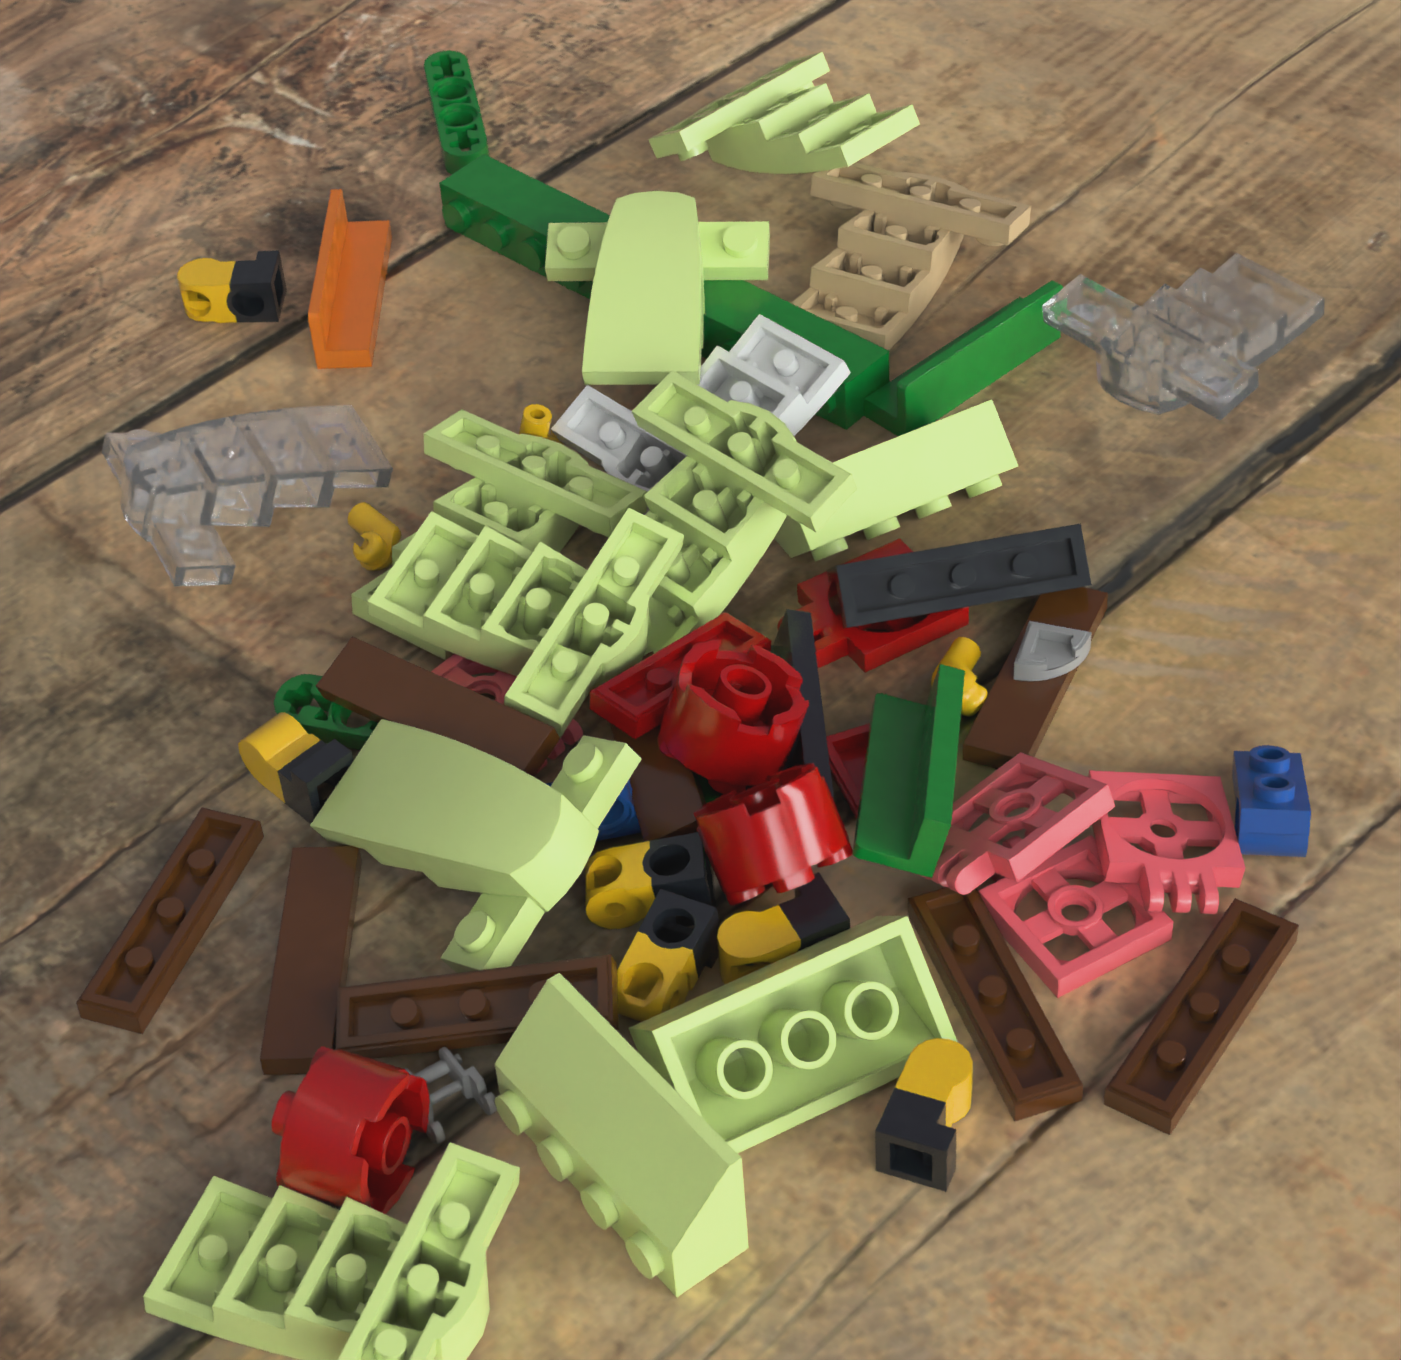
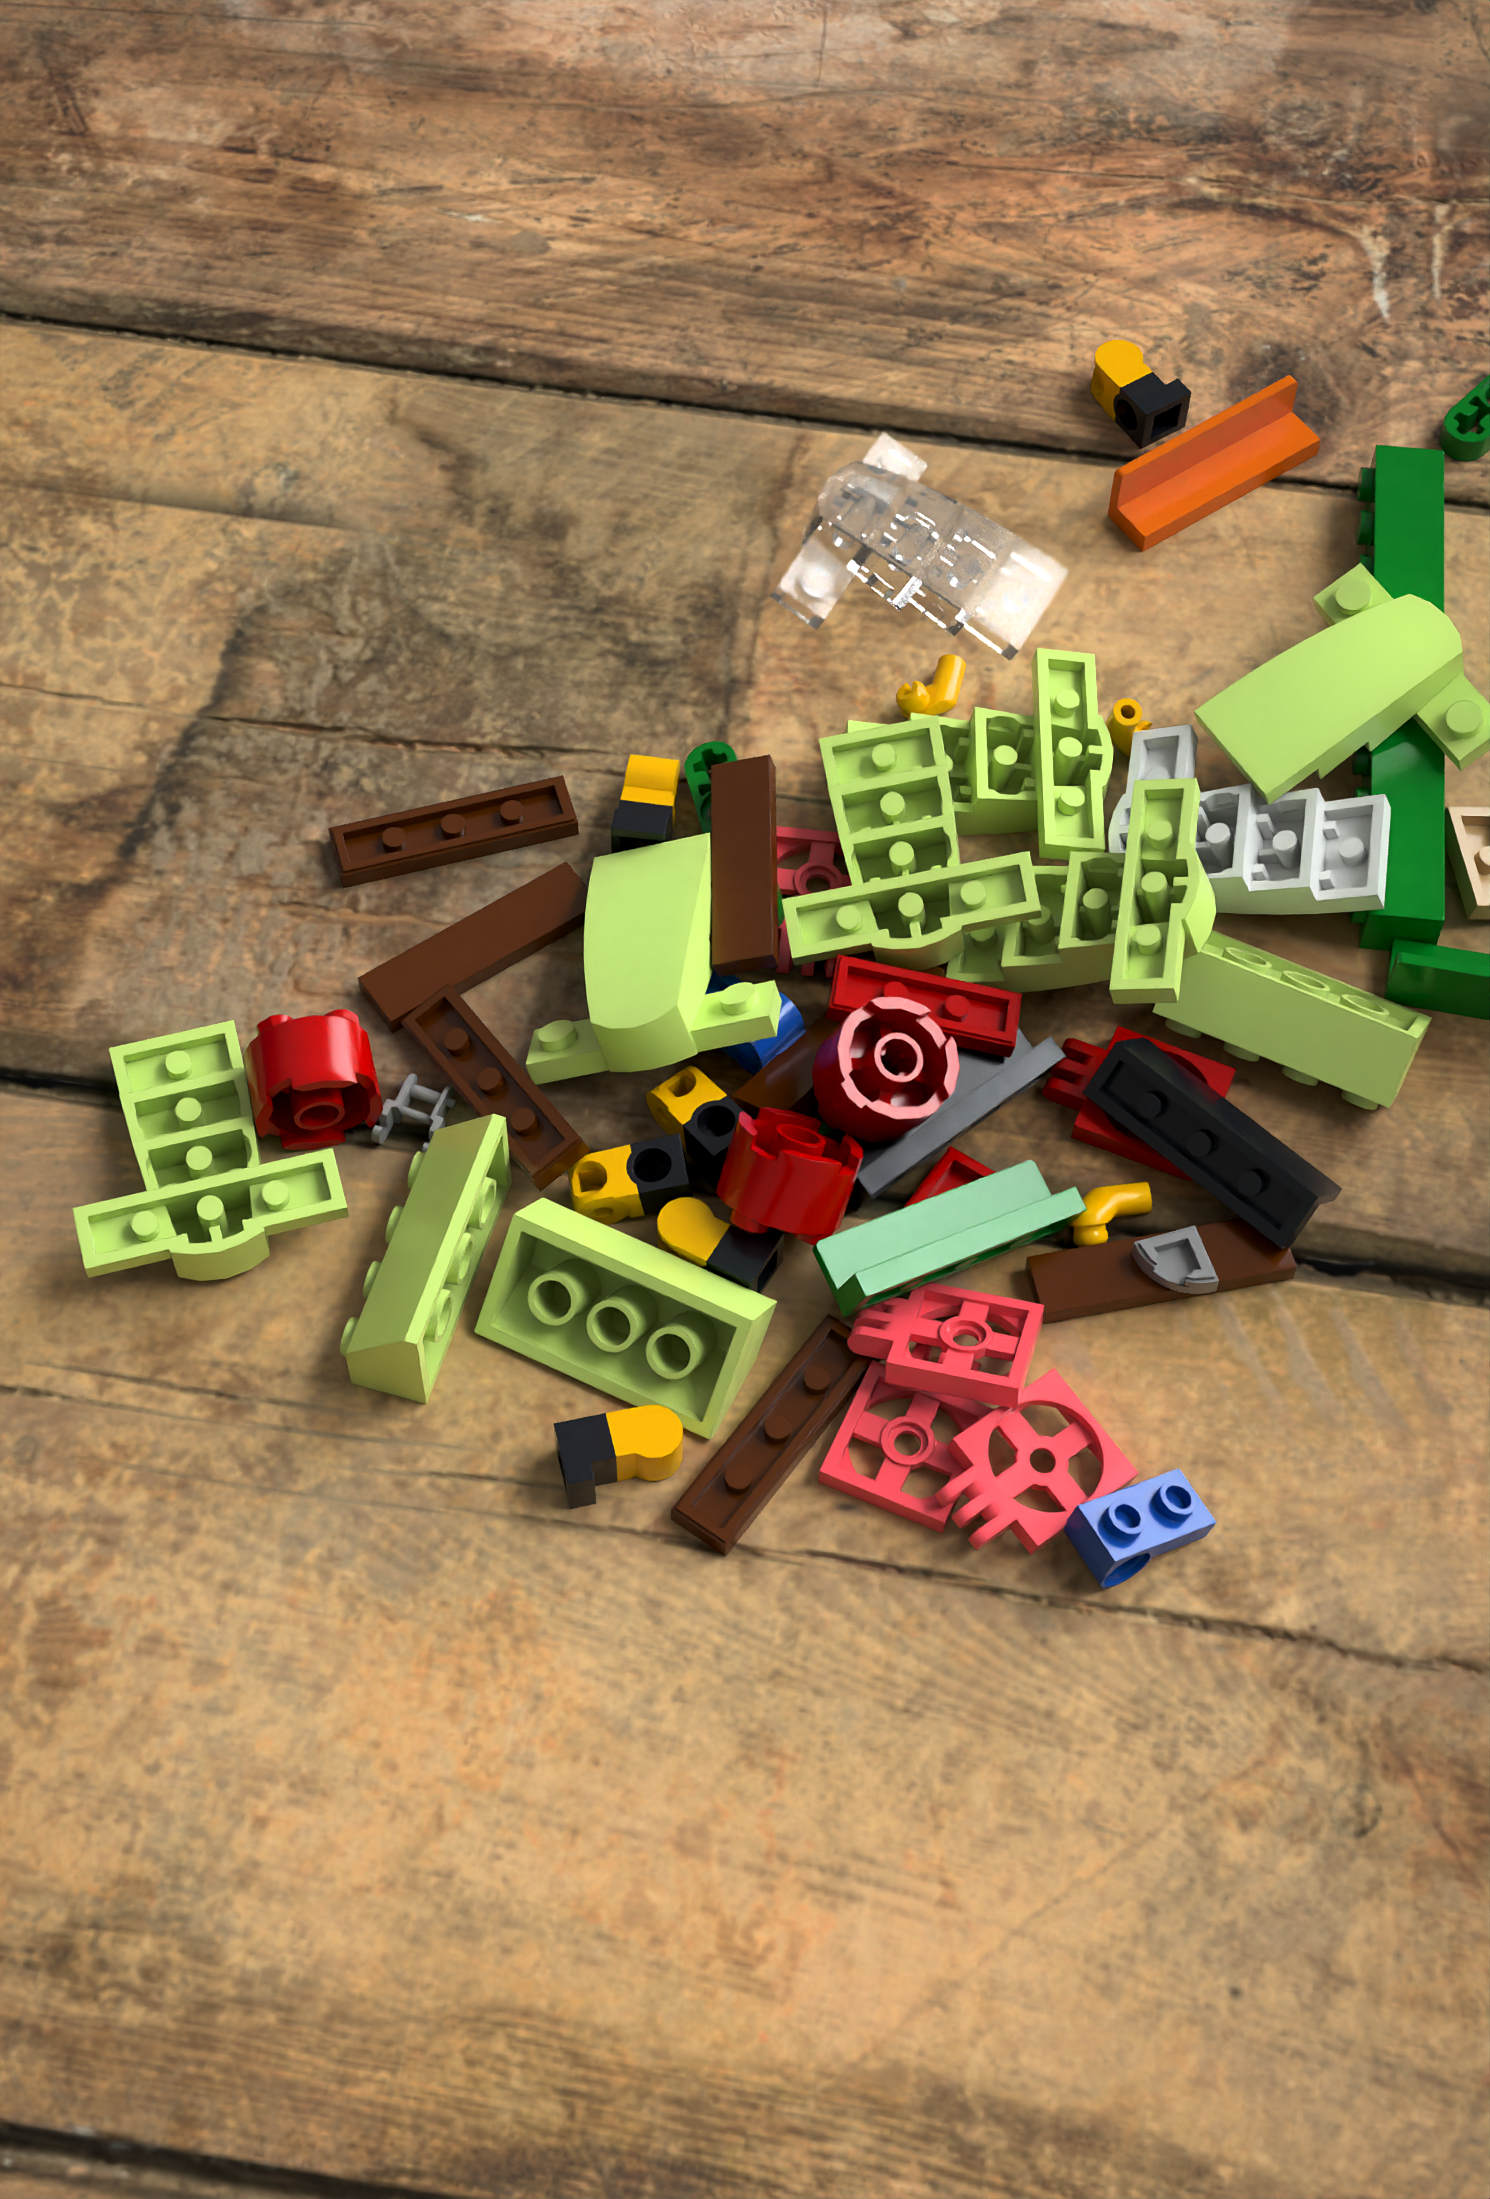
camera: 50 degrees right, 15 degrees up
(1201, 1016) = (872, 1597): reddish brown tile -> none

